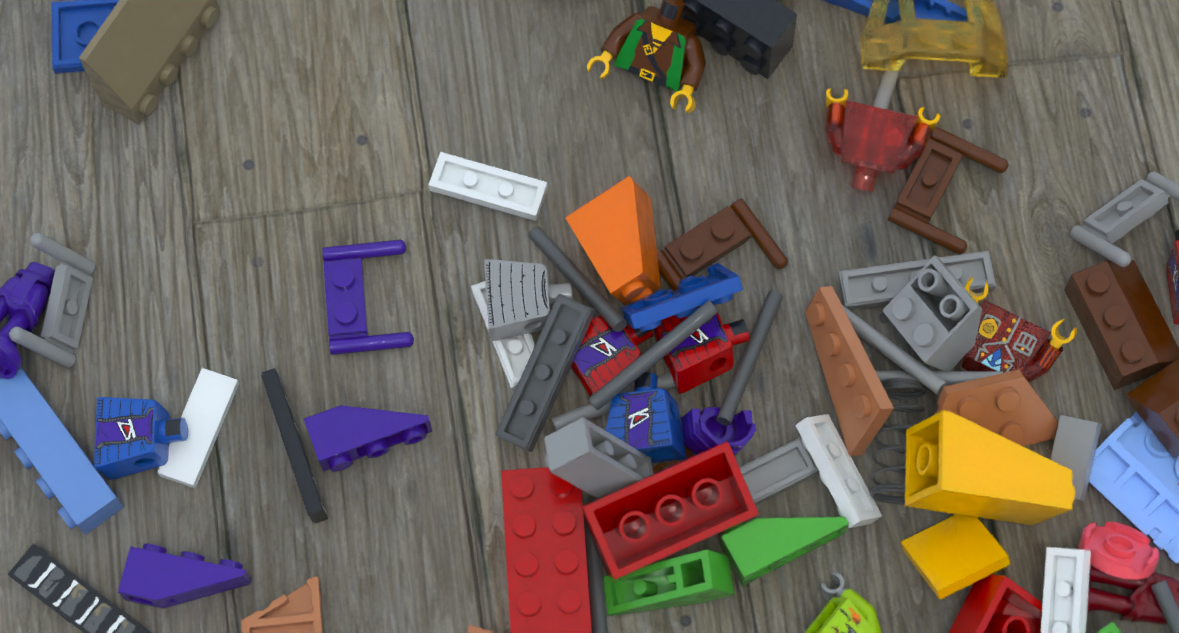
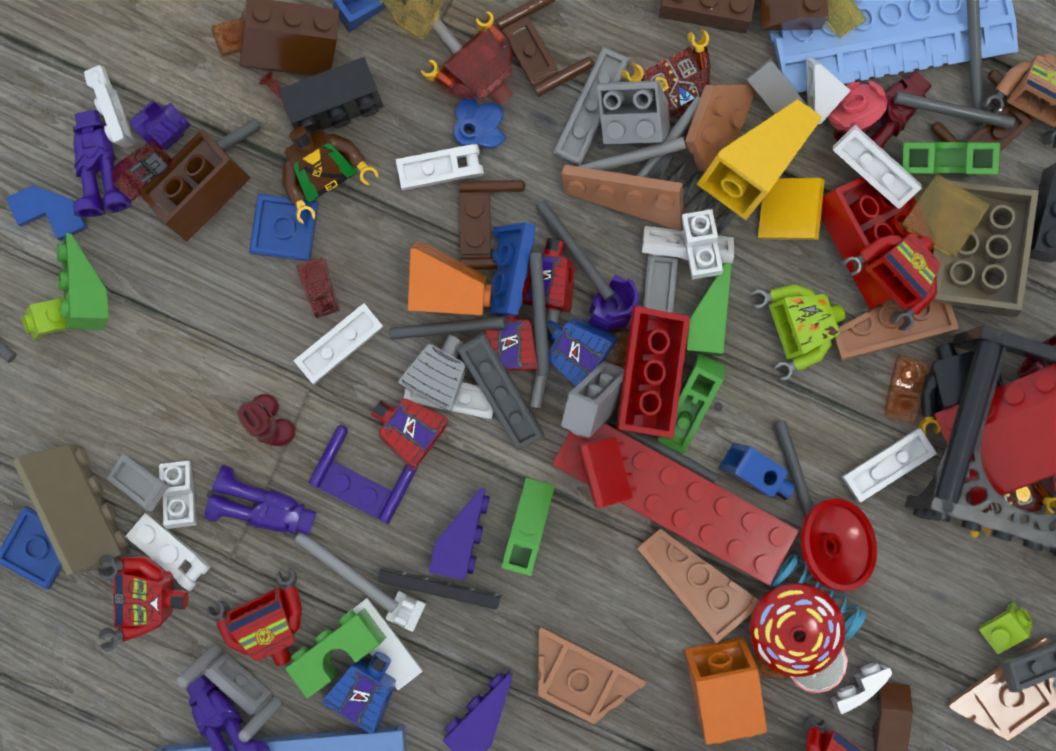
camera: 60 degrees left, 15 degrees up
(99, 156) = (140, 597): none -> torso
(131, 368) = (314, 668): none -> bright green arch
(146, 292) = (263, 624): none -> red torso
(164, 157) = (167, 550): none -> white plate
(216, 83) = (137, 482): none -> light grey tile
(232, 129) = (179, 498): none -> white slope
(248, 429) = (407, 612): none -> white tile
(251, 342) = (346, 572): none -> light grey bar
(271, 230) = (274, 512): none -> dark purple piece
(357, 155) = (259, 421): none -> dark red piece
(416, 494) = (528, 527): none -> bright green slope
(443, 310) = (409, 430): none -> torso
(526, 519) = (606, 472): none -> red slope
(534, 129) = (318, 287): none -> clear red leg
(563, 60) = (279, 232): none -> blue tile
(741, 168) = (438, 167): none -> white plate
(820, 182) = (481, 120): none -> blue plate
(845, 476) = (702, 244): none -> white slope
(1111, 502) = (823, 89): none -> white slope

